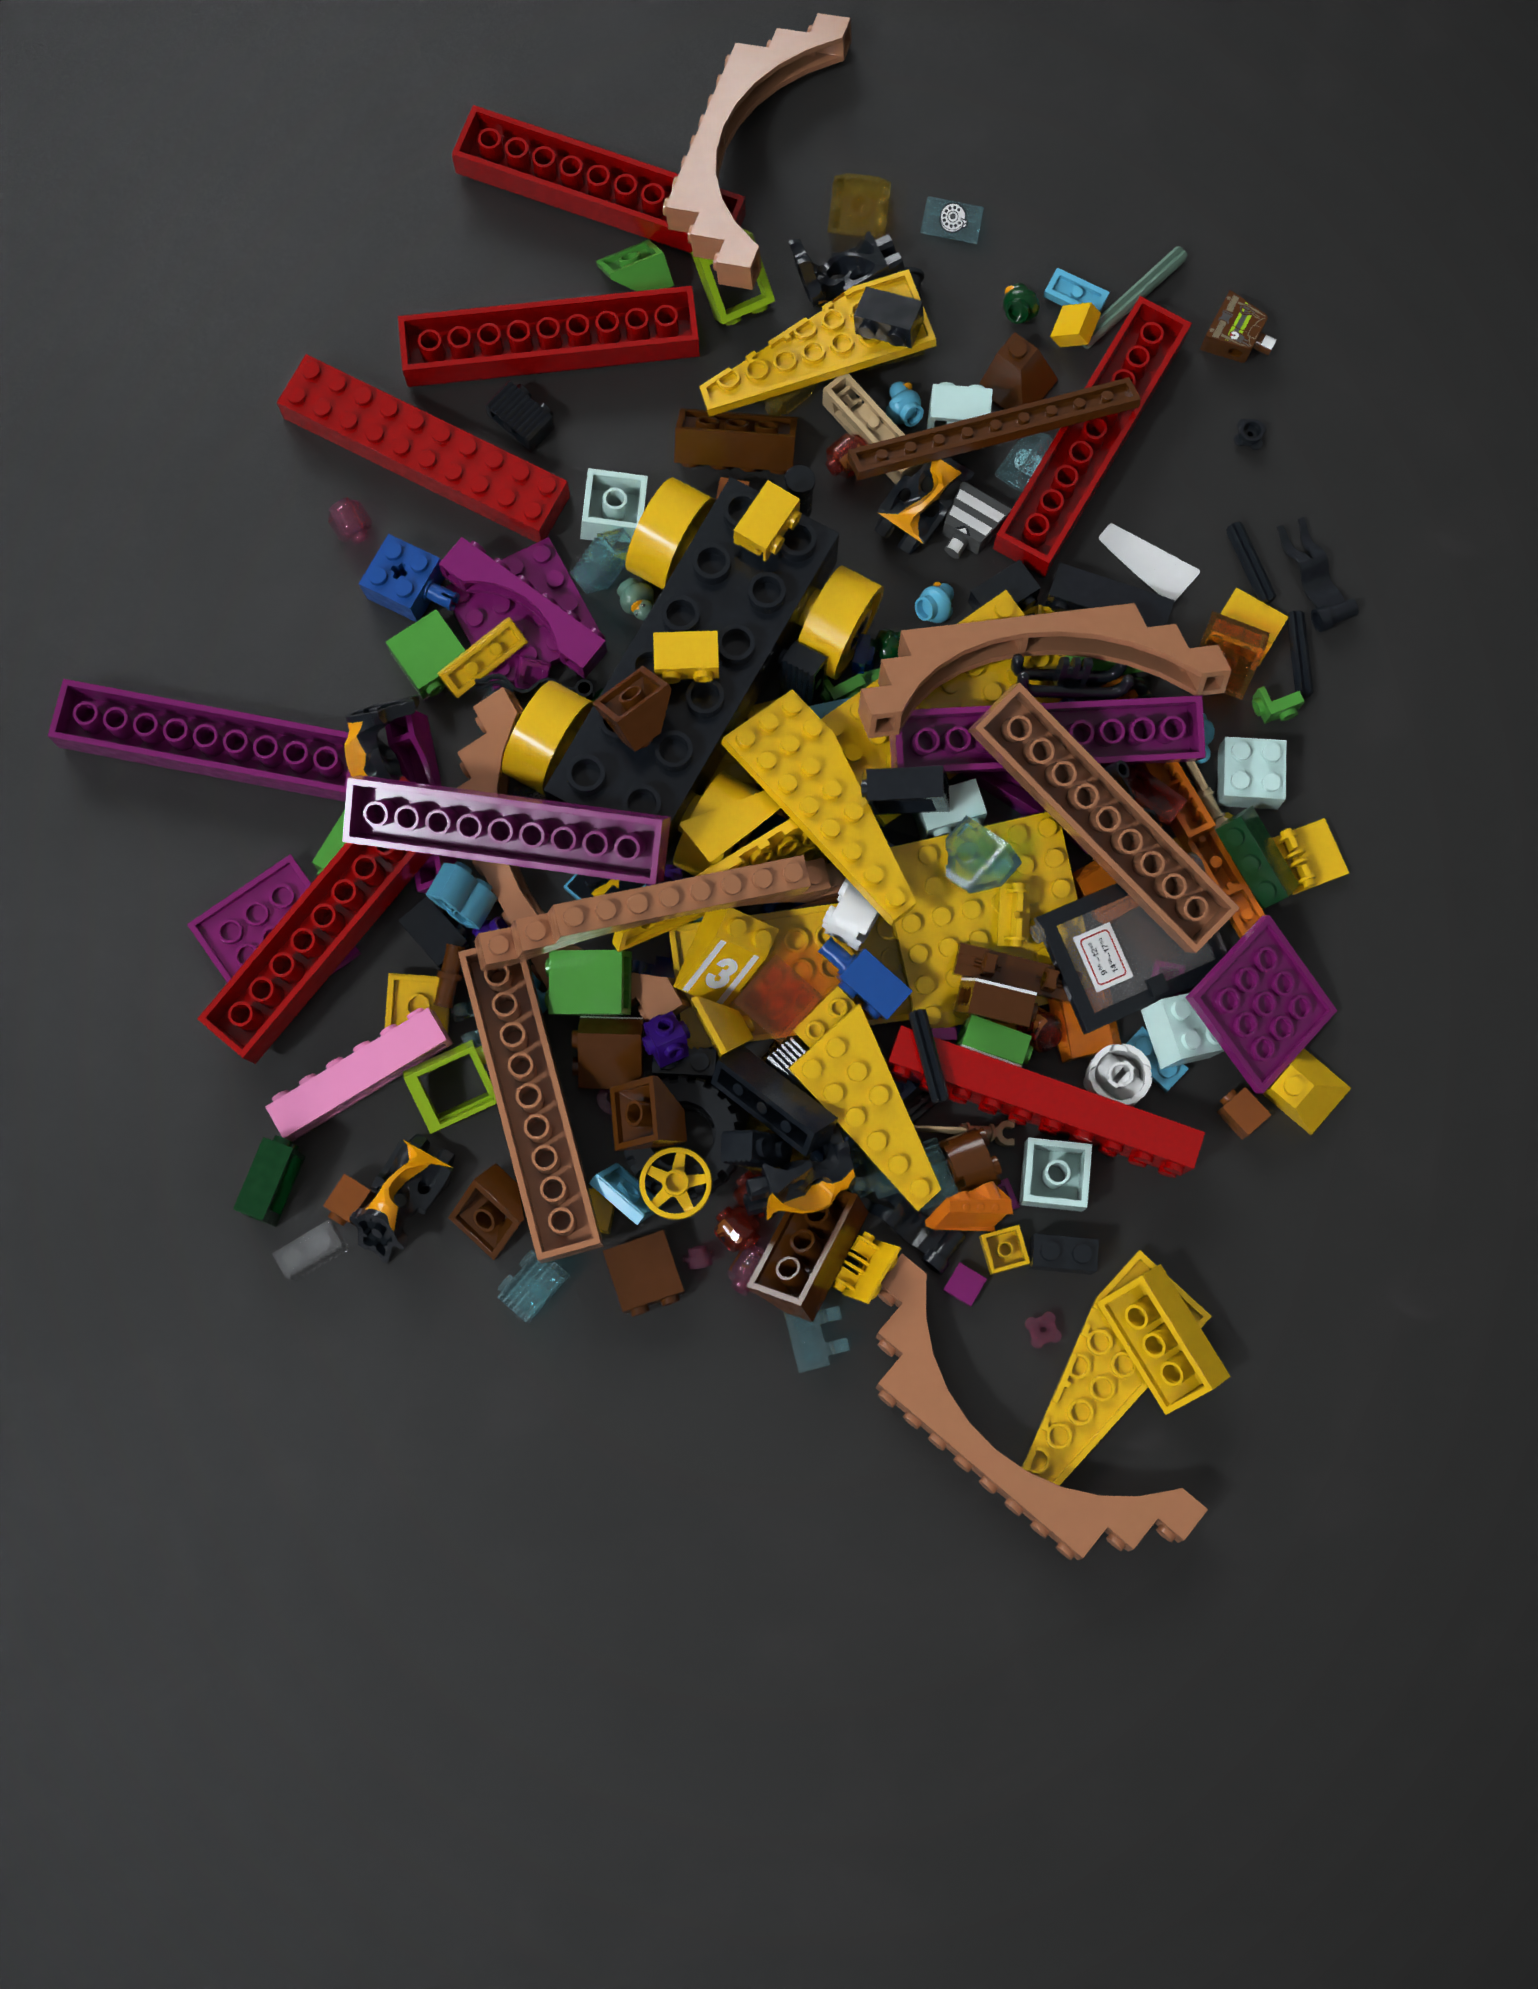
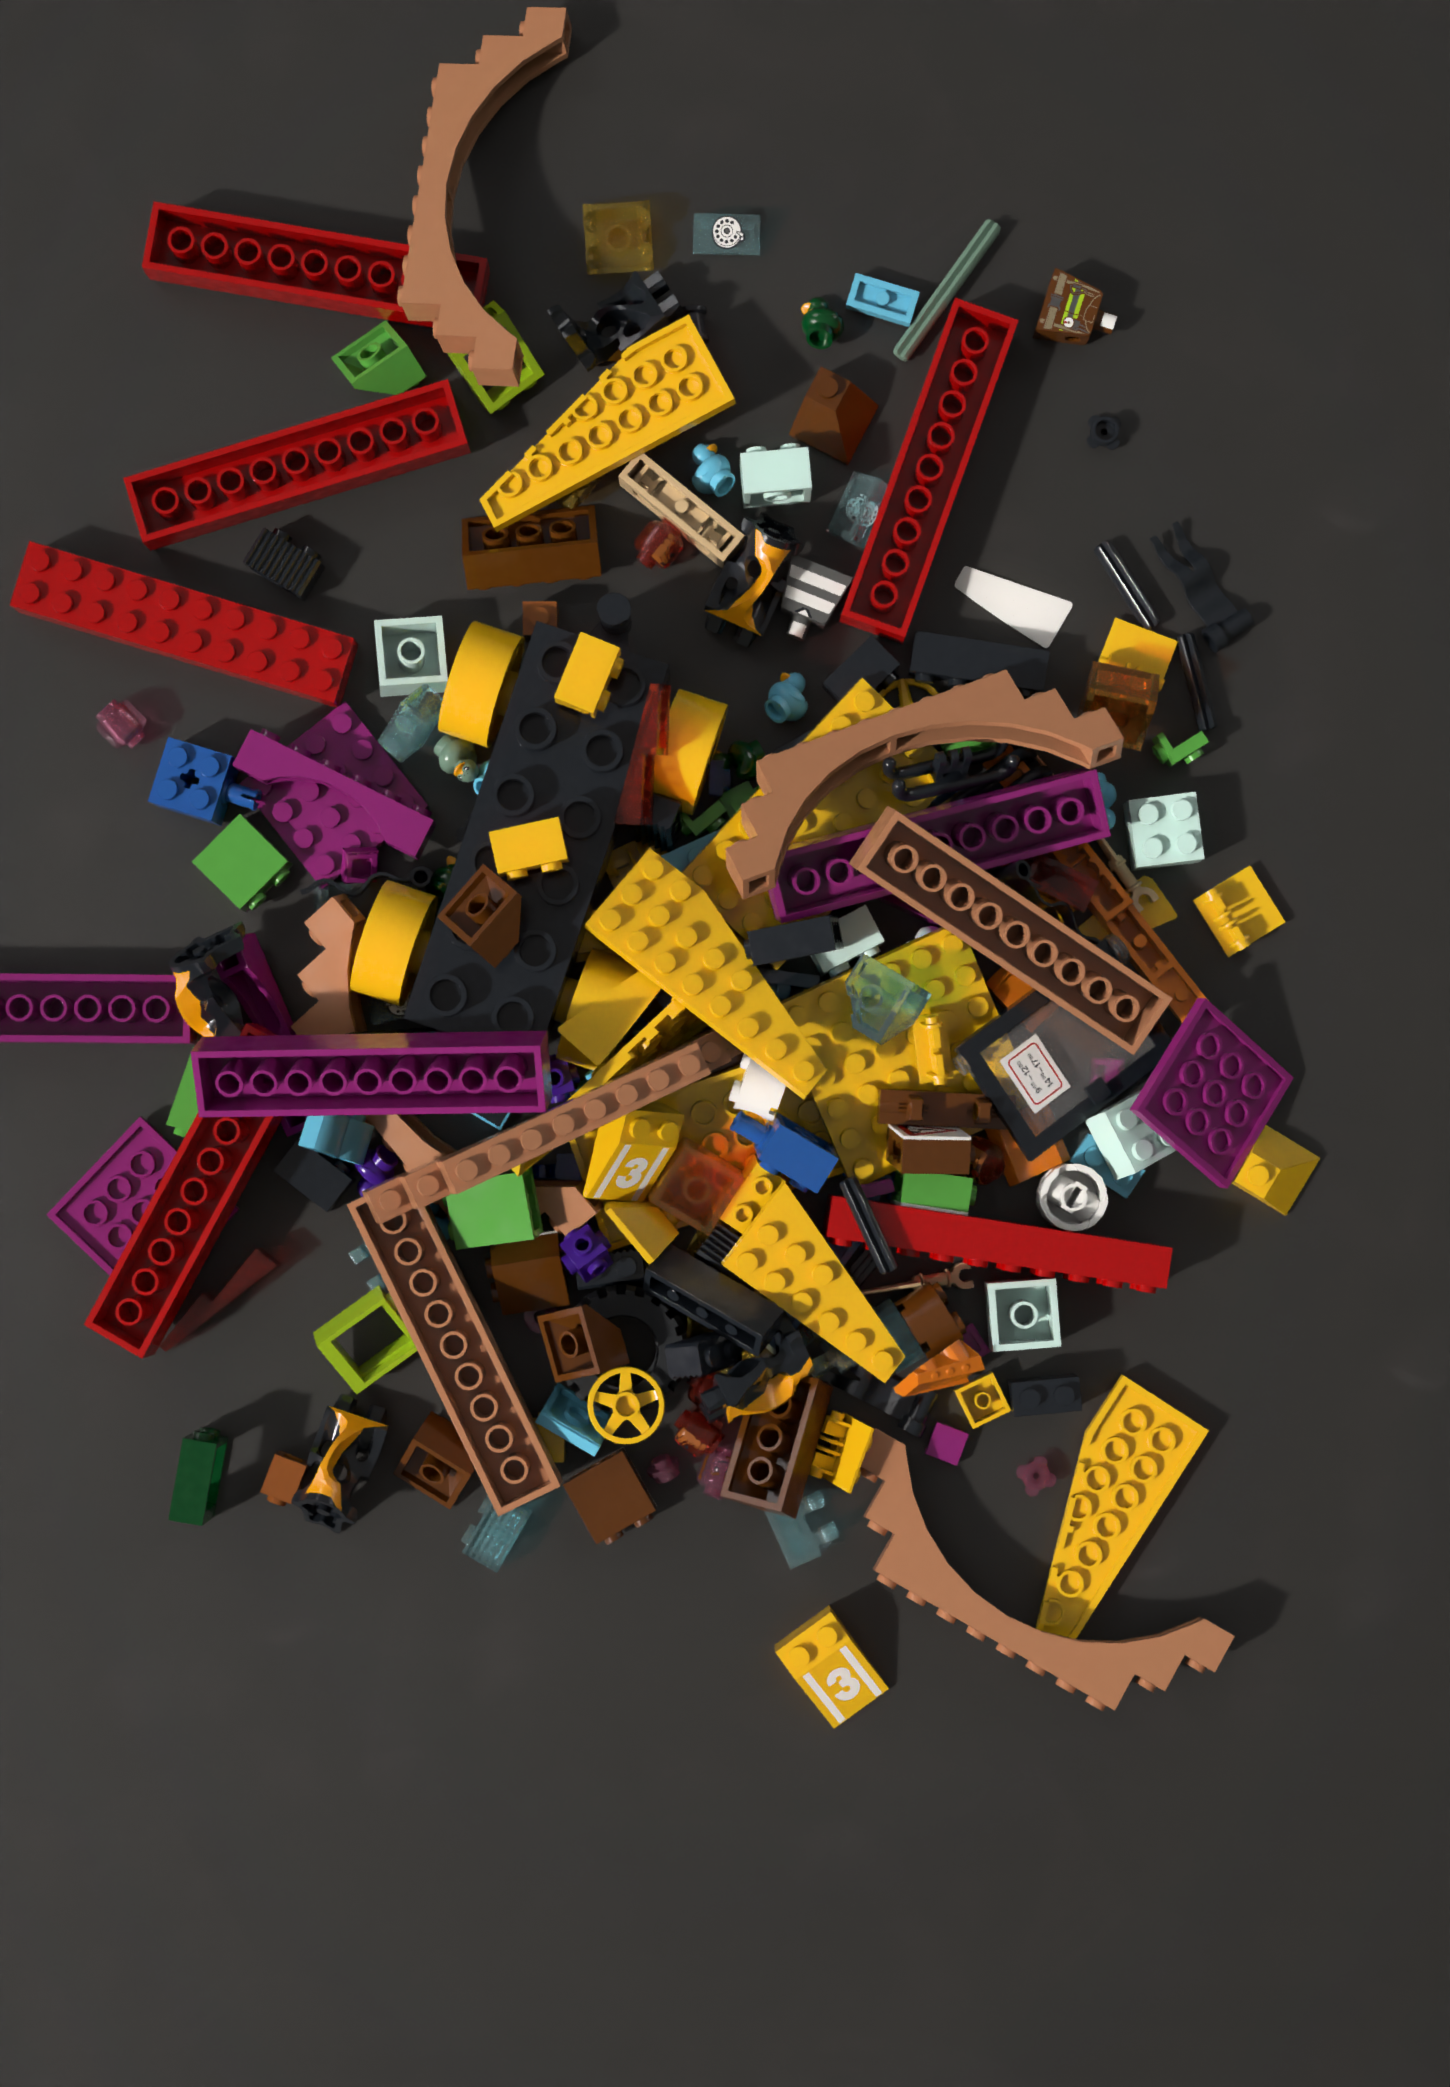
camera: 15 degrees left, 10 degrees up
(310, 1034) = (207, 1306): none -> clear red slope
(310, 1251) = (257, 1539): clear brick -> none
(358, 1074) = (267, 1344): bright pink brick -> none
(409, 993) = (313, 1256): yellow plate -> none
(449, 976) = (340, 1223): reddish brown pin -> none
(482, 657) = (302, 860): yellow tile -> none
(811, 593) = (651, 740): none -> clear red slope
(820, 1475) = (830, 1667): none -> yellow slope
(888, 317) = (677, 385): black brick -> none
(993, 428) = (817, 497): reddish brown plate -> none
(1075, 324) = (887, 339): yellow piece -> none
(1163, 1339) = (1162, 1467): yellow slope -> none
(1242, 1112) = (1209, 1207): dark orange brick -> none
(1257, 857) = (1183, 929): dark green brick -> none

